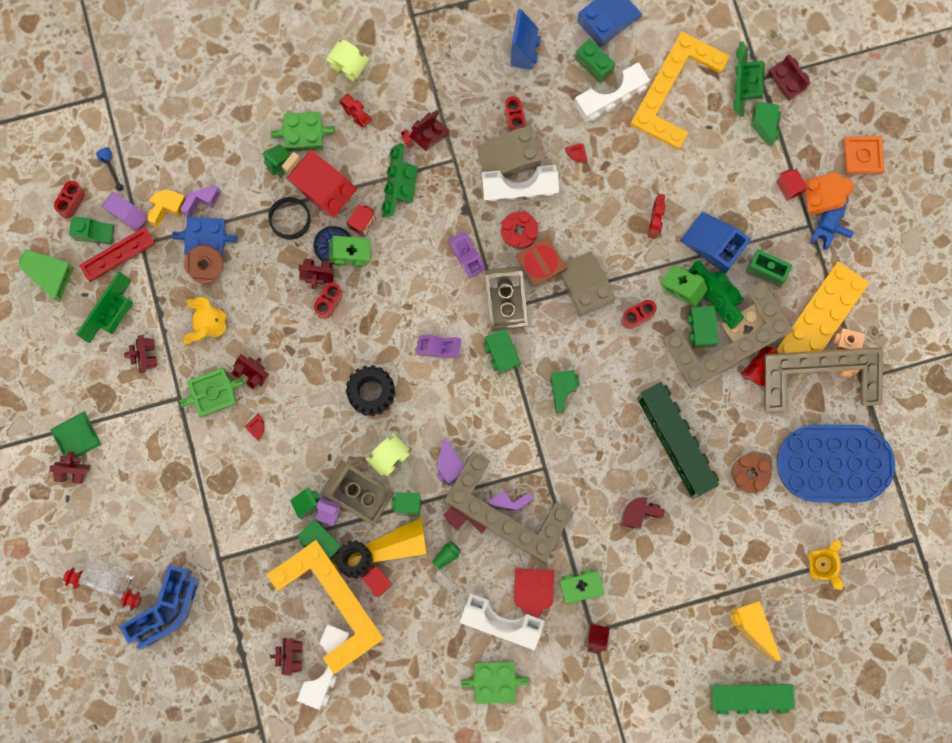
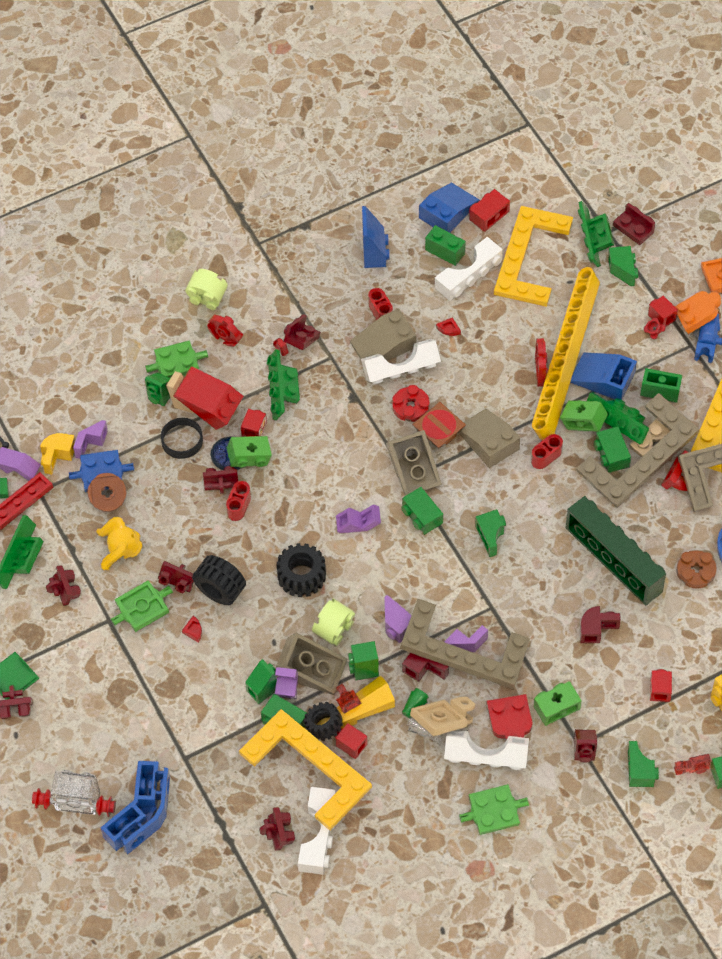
camera: 10 degrees left, 20 degrees down
(288, 387) = (219, 580): none -> black tyre
(384, 540) = (347, 699): none -> clear red plate
(466, 254) = (365, 436): medium lavender slope -> none
(479, 581) = (444, 717): none -> tan plate
(642, 675) = (640, 769): none -> green arch
(648, 29) = (489, 210): none -> red brick
(685, 591) = (661, 685): none -> brick
(687, 201) = (565, 353): none -> yellow beam
(698, 683) = (695, 764): none -> clear red plate
(778, 195) = (648, 328): none -> red plate

